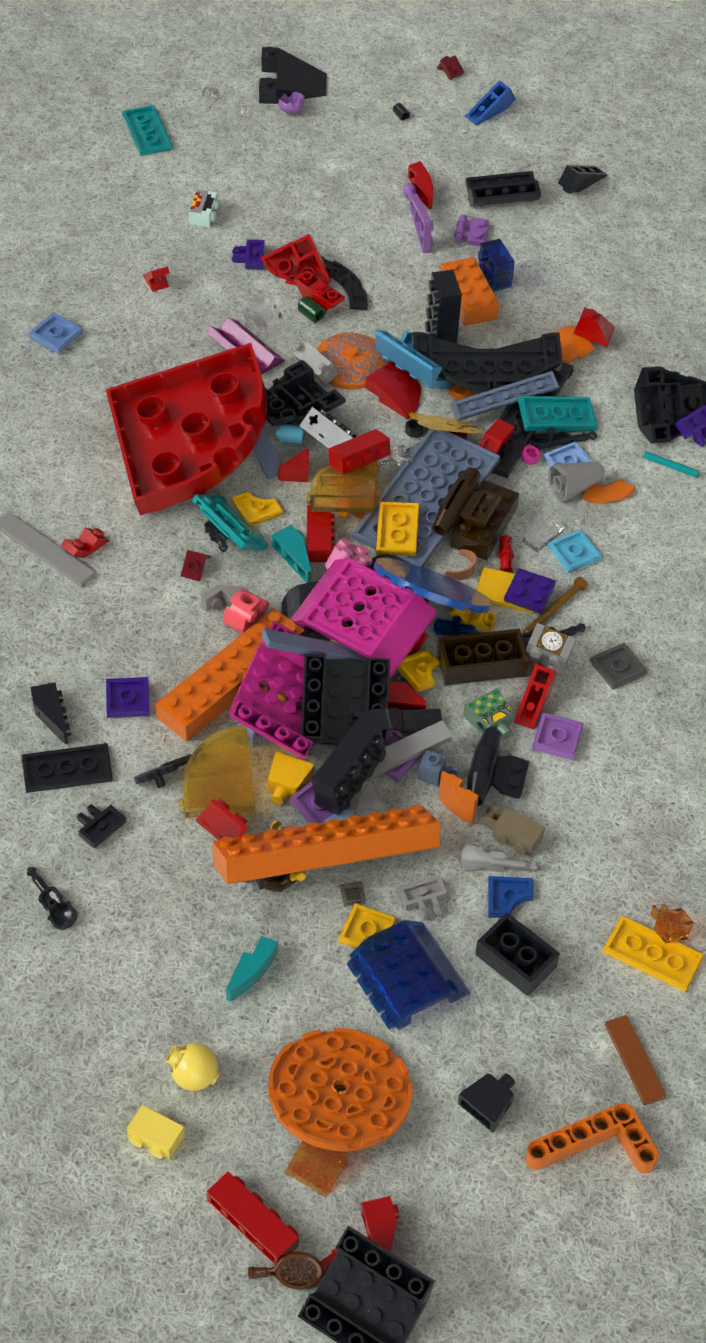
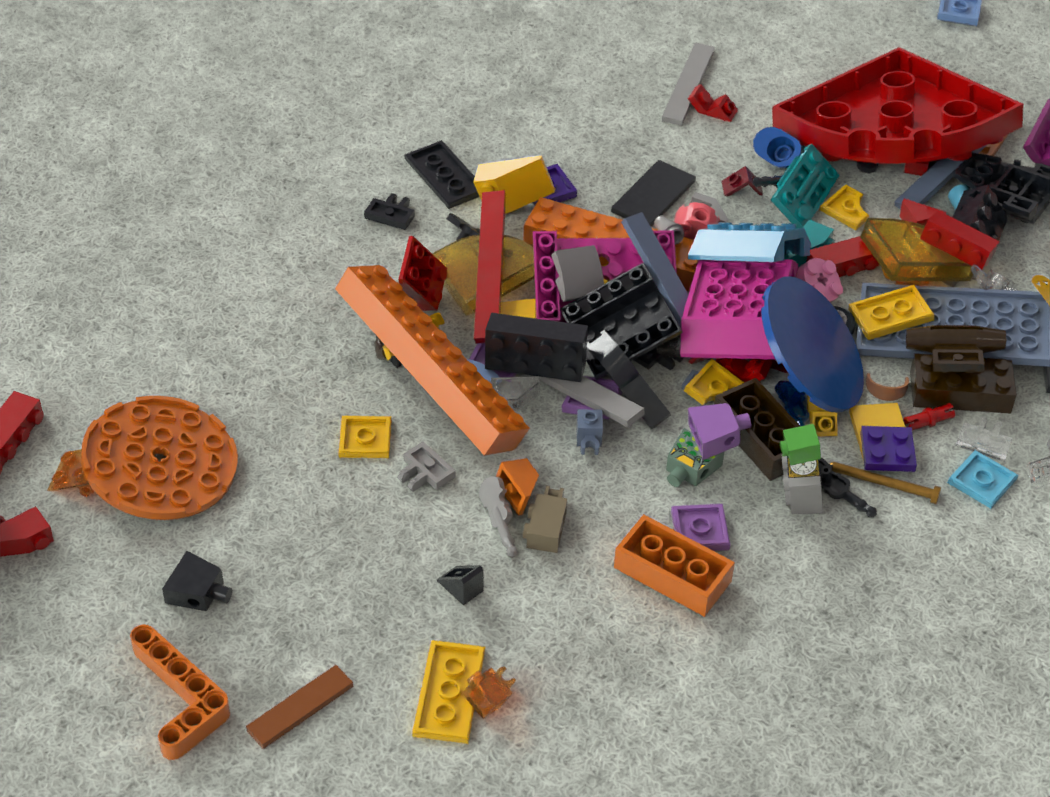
camera: 70 degrees right, 5 degrees down
(48, 709) = (500, 139): black slope -> none
(61, 913) = (290, 208): black piece -> none
(130, 720) = (521, 178): none -> yellow slope
(155, 1133) = (70, 344): light yellow brick -> none
(173, 520) = (776, 146): none -> blue piece
(174, 627) = (654, 192): none -> black tile
(193, 1066) = (143, 343): light yellow brick -> none
(232, 765) = (489, 260): none -> red tile
(251, 967) = (276, 358): teal slope -> none
(253, 627) = (663, 223): none -> light grey cone
(282, 704) = (577, 271): none -> light grey slope
(308, 580) = (749, 242): none -> slope
(352, 894) = (403, 413): clear smoke tile -> none
(404, 697) = (666, 378): red slope -> none
(404, 972) = (328, 479): clear blue slope -> none
(457, 799) = (557, 452): orange slope -> none
(476, 832) = (519, 480): none -> orange slope
(484, 682) = (716, 428): none -> medium lavender torso
(491, 769) = (618, 482): black plate -> none
(507, 893) = (465, 538): blue tile -> none
(517, 954) = (382, 559): black brick -> none
(535, 696) = (748, 490): red slope -> none
(542, 631) = (801, 444): none -> bright green brick
(555, 907) = (463, 582): none -> black slope
(594, 764) = (674, 565): none -> orange brick
(618, 666) = (839, 561): dark grey tile -> none

